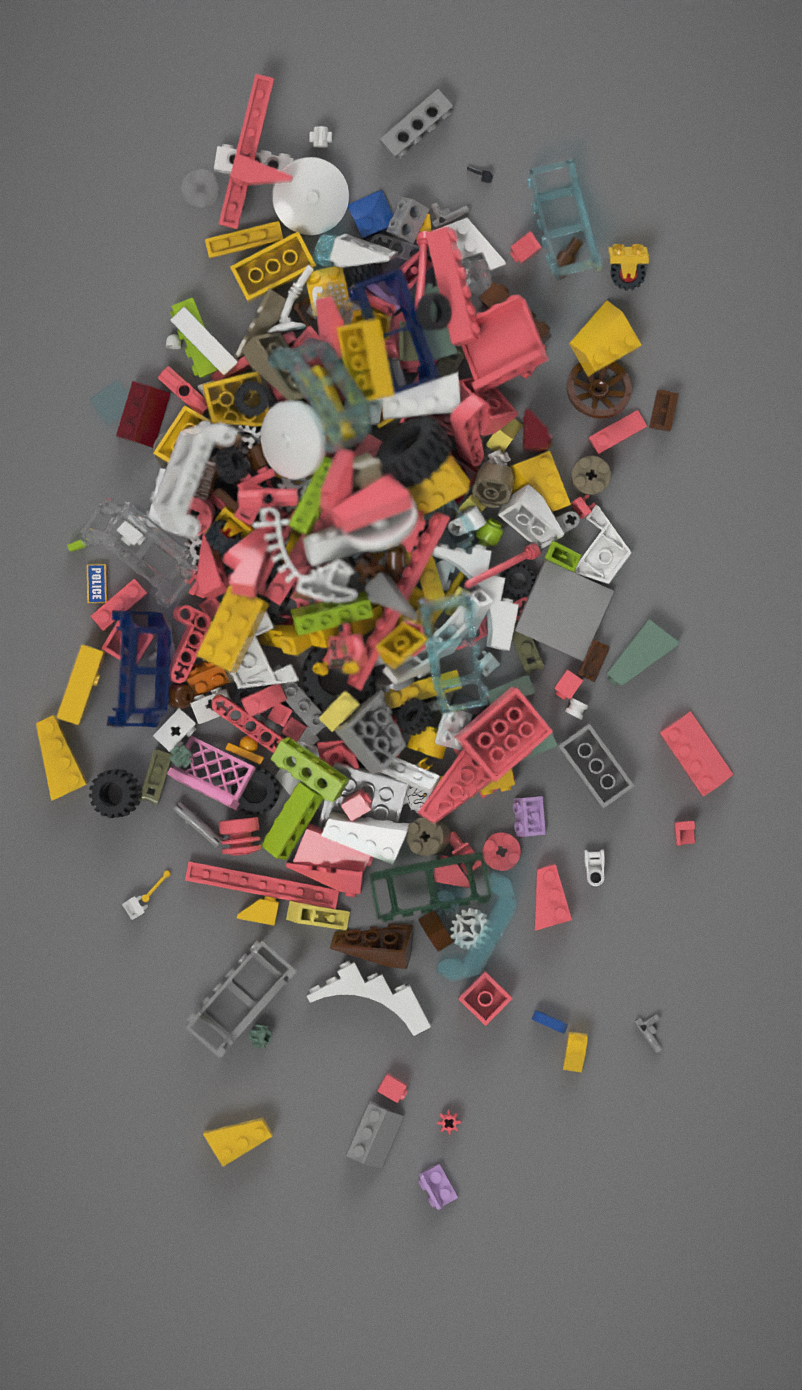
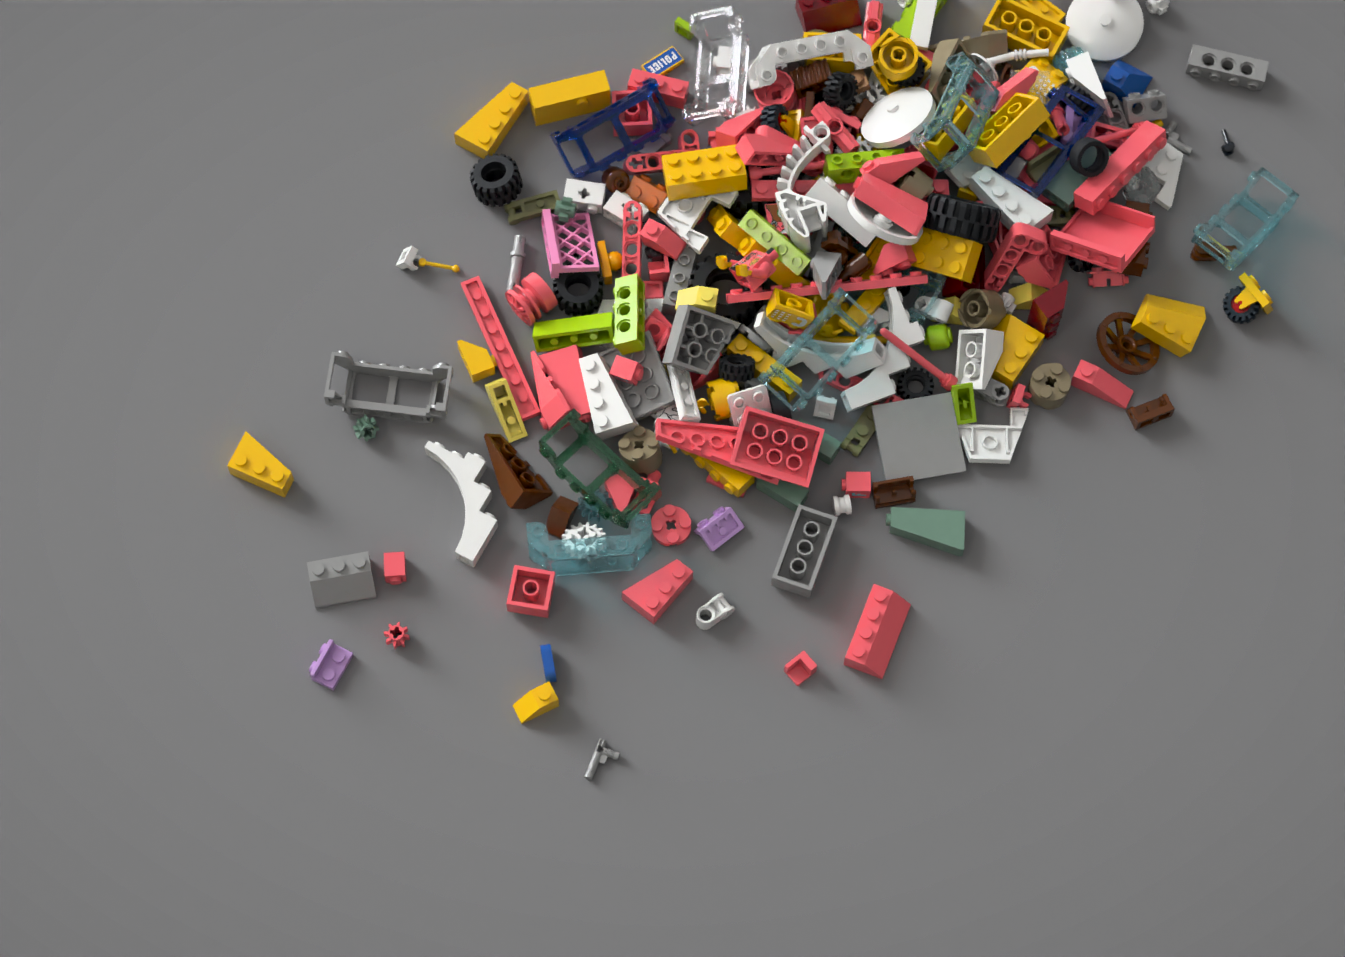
camera: 50 degrees right, 20 degrees down
(252, 397) = (894, 68): none -> yellow brick
(525, 248) = (1195, 210): coral slope -> none

